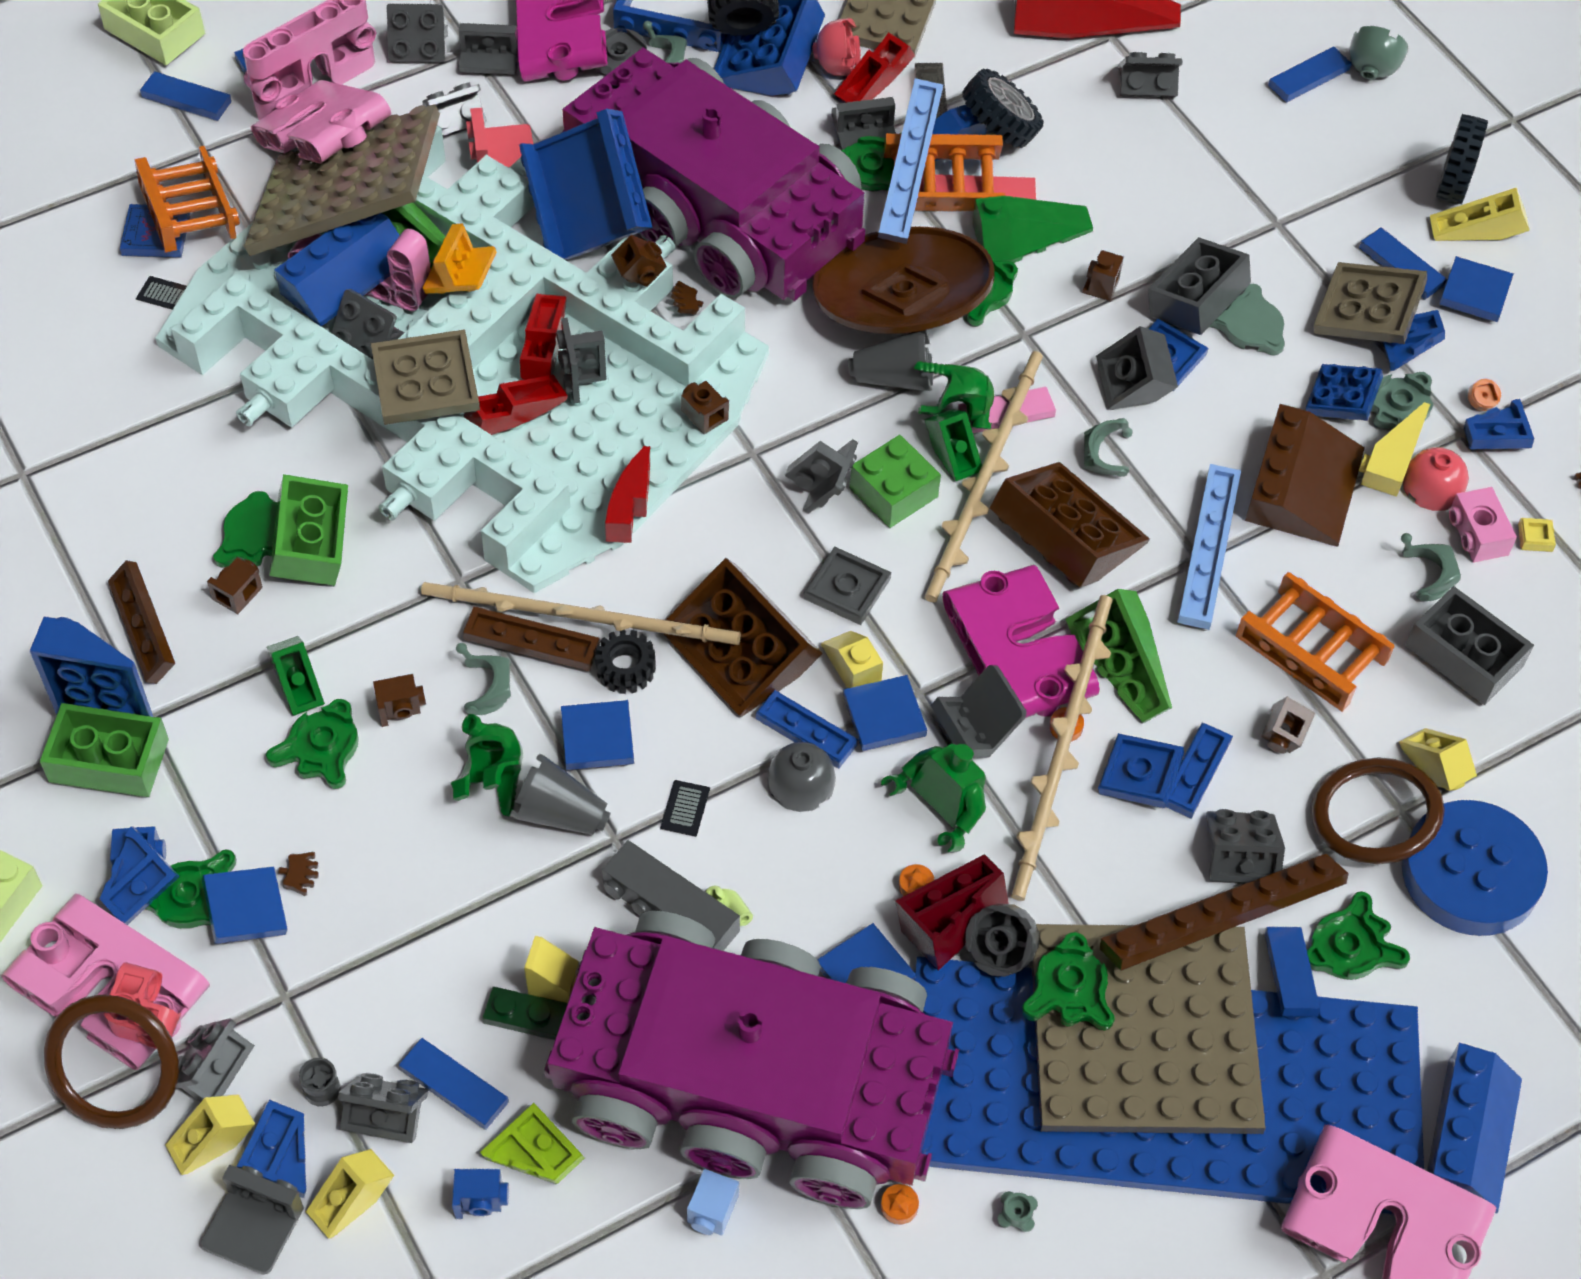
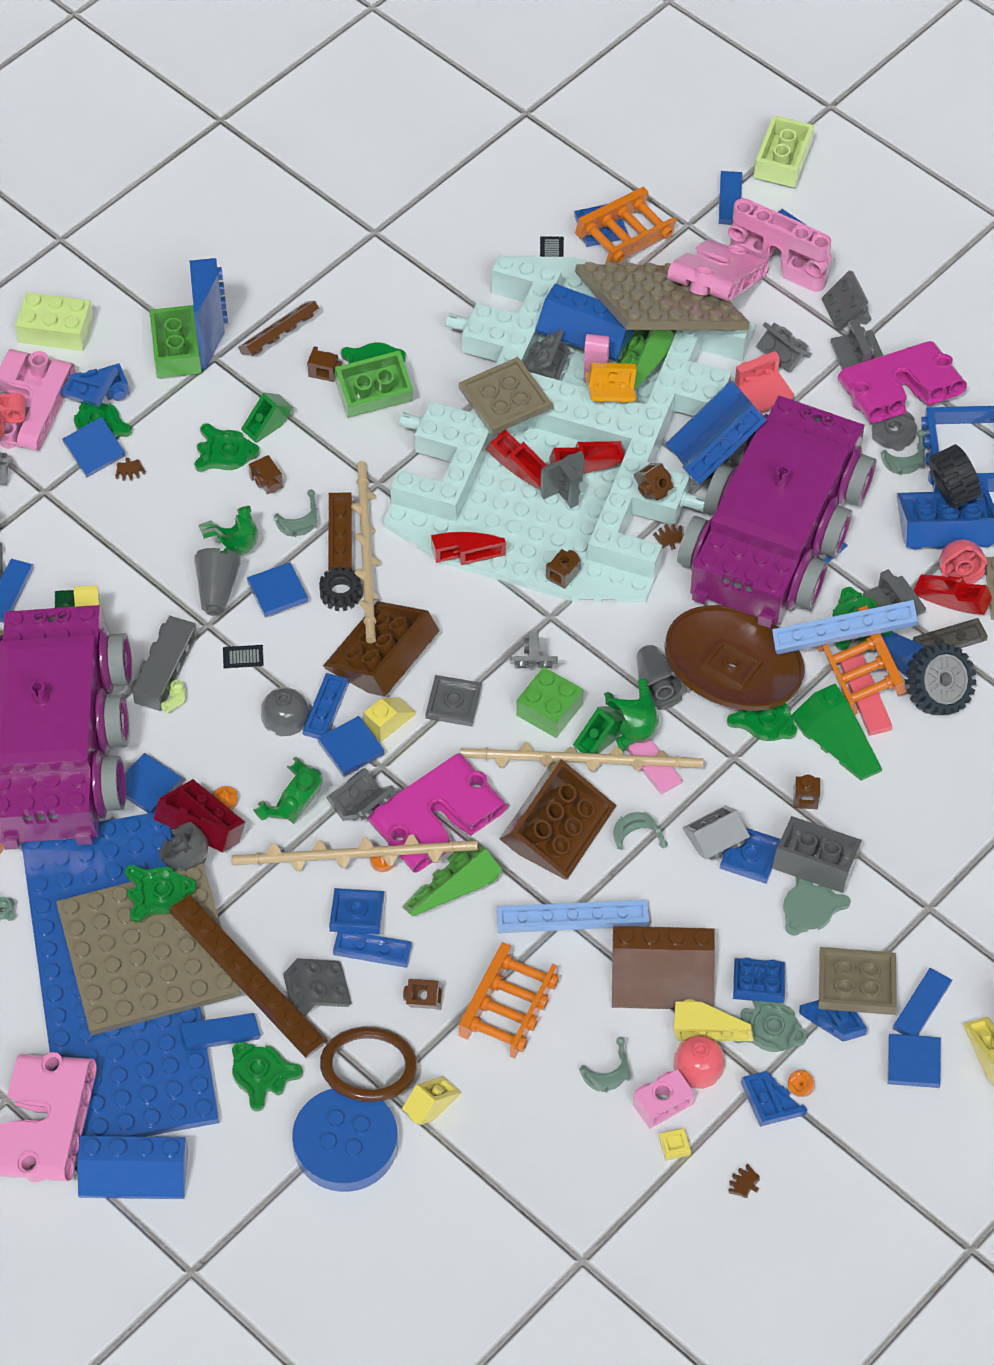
camera: 75 degrees right, 0 degrees up
(1469, 645) = (536, 1101): dark grey brick -> none

